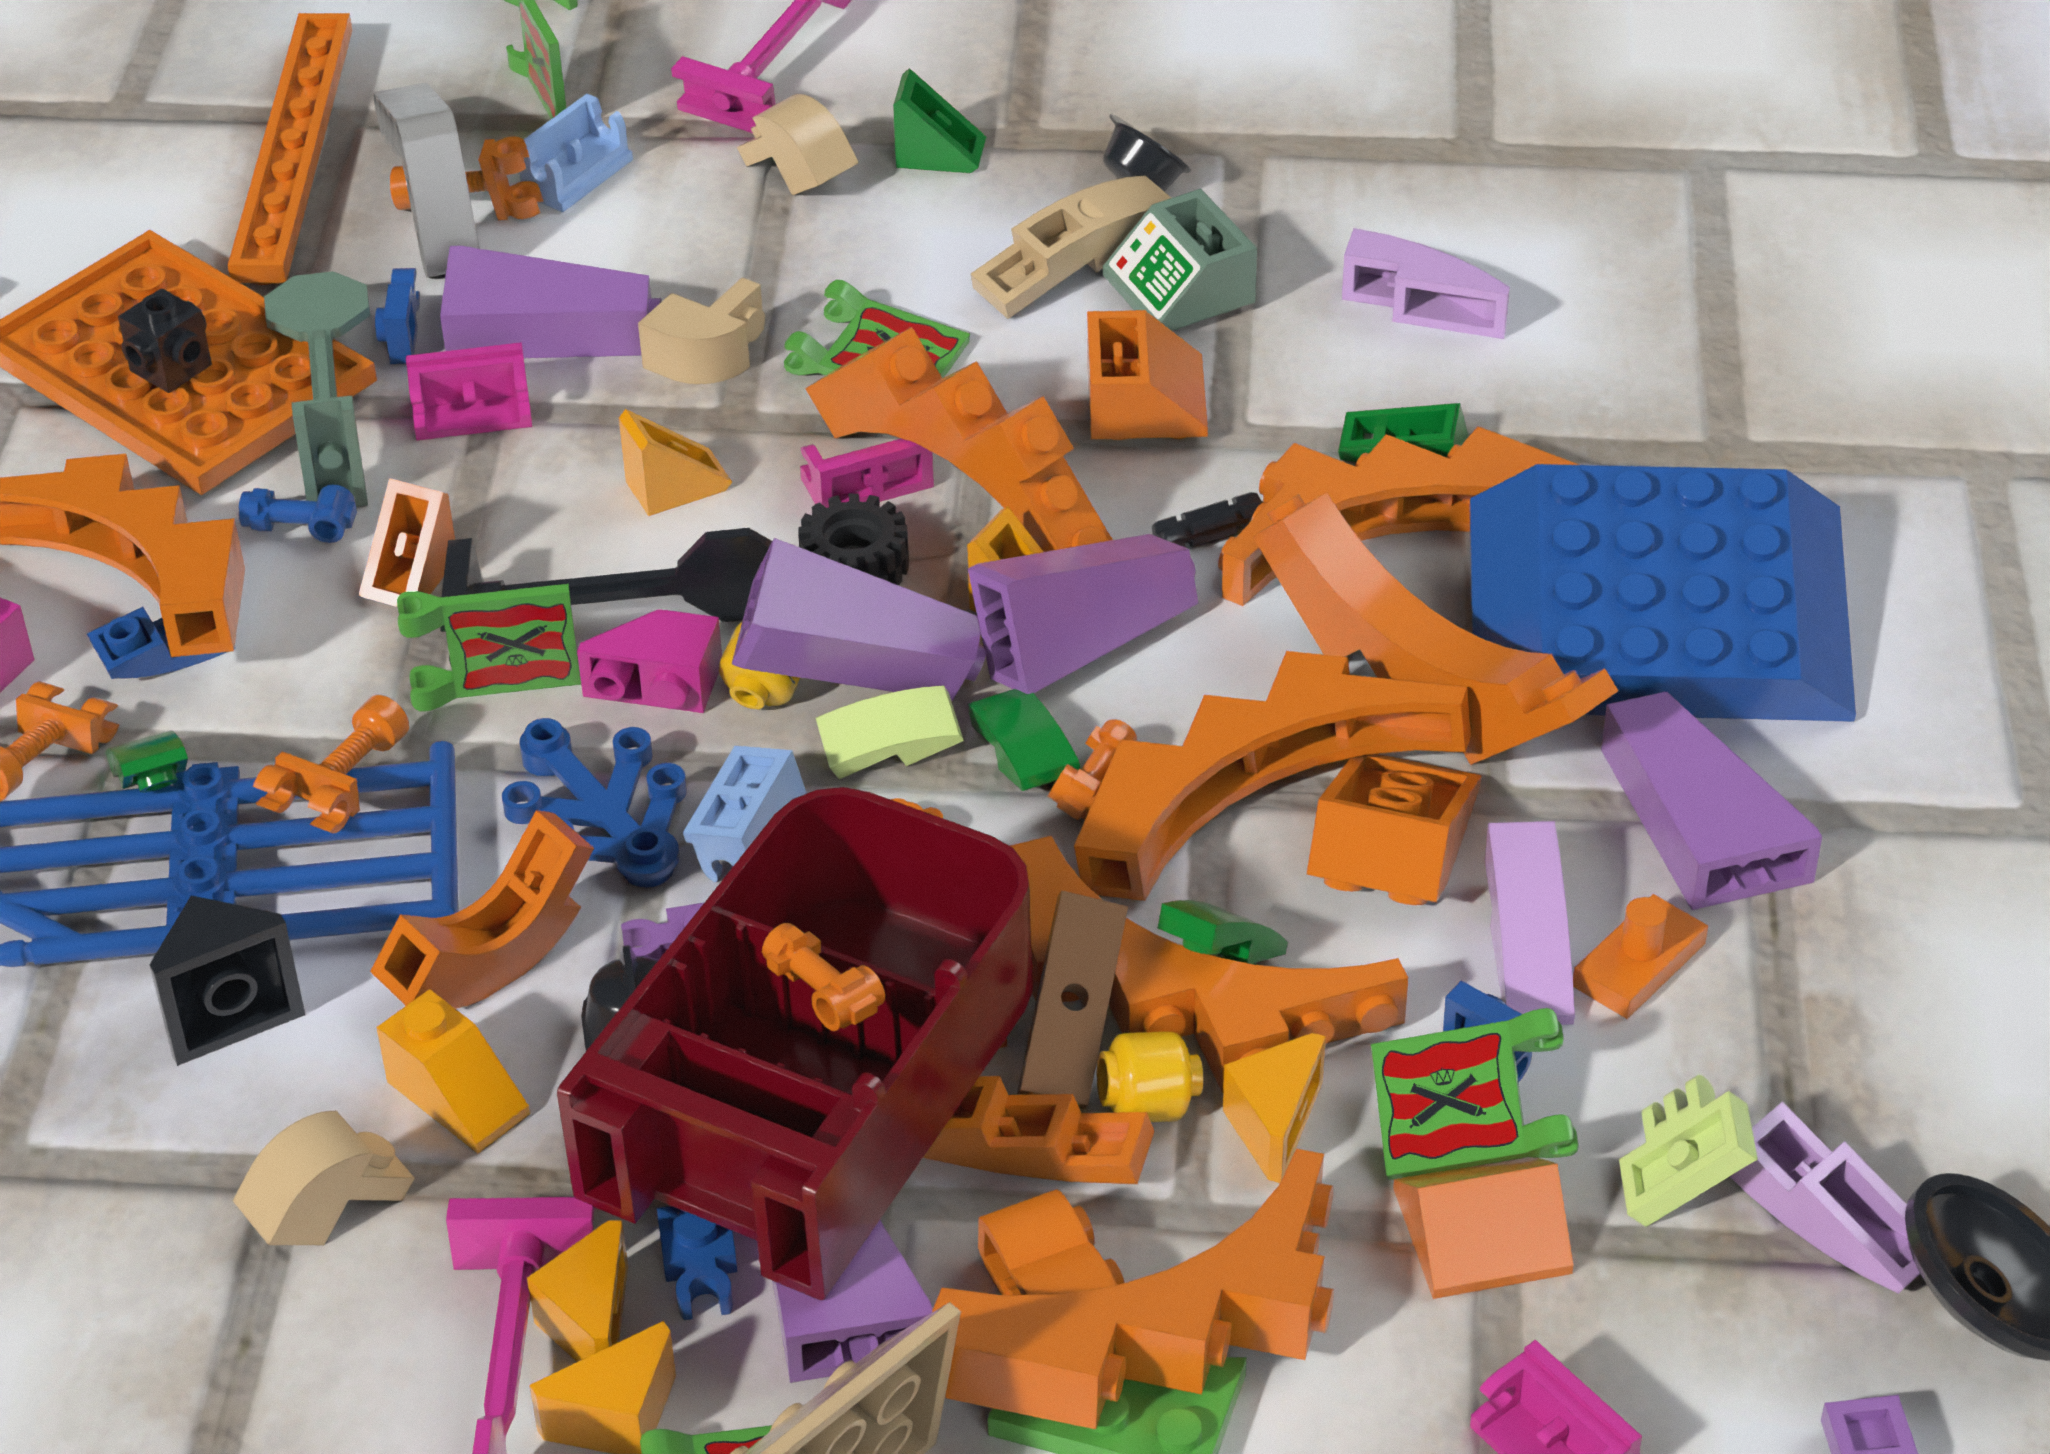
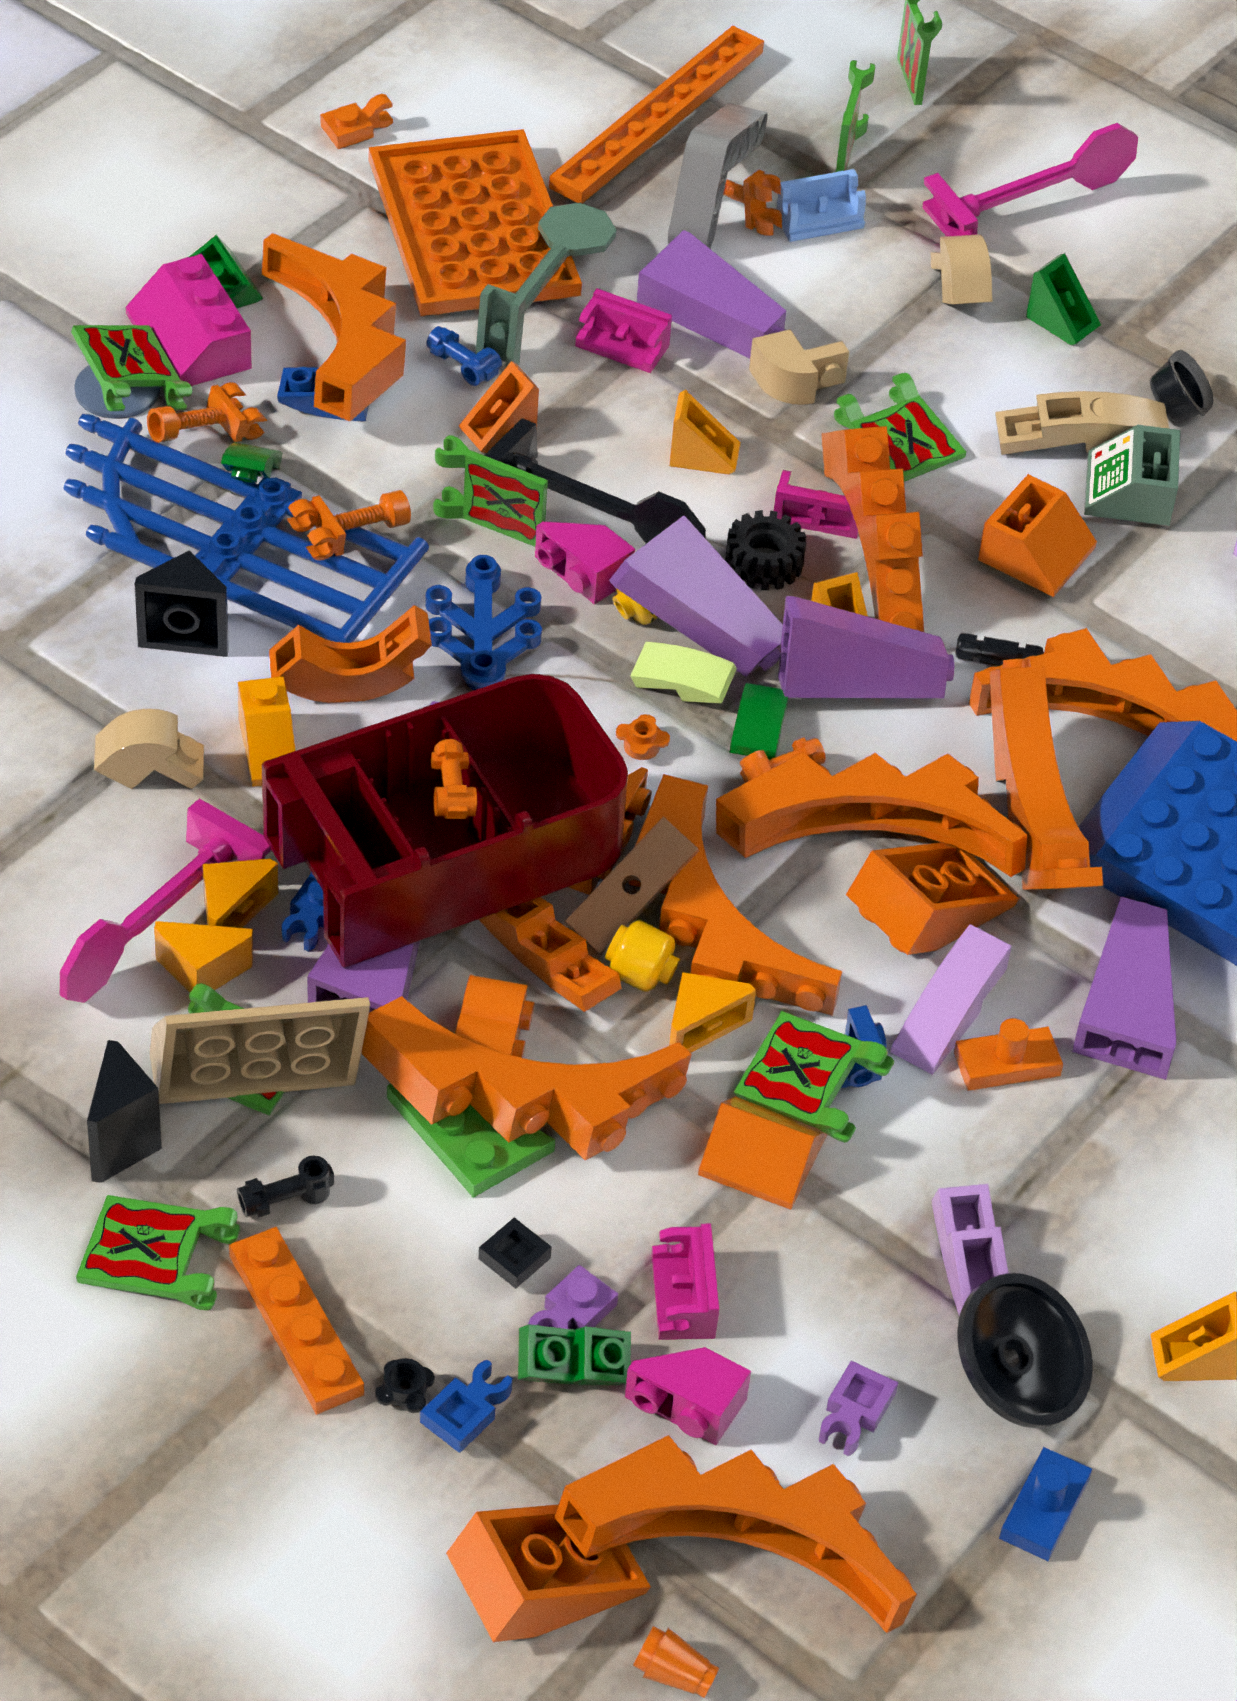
camera: 30 degrees right, 5 degrees up
(165, 340) = (460, 198): black brick -> none
(397, 320) = (621, 262): blue plate -> none
(740, 804) = (568, 659): light blue hinge -> none
(1220, 932) = (749, 889): green slope -> none
(1428, 427) = (1203, 665): green slope -> none
(1686, 1150) = (908, 1179): yellowish green hinge -> none

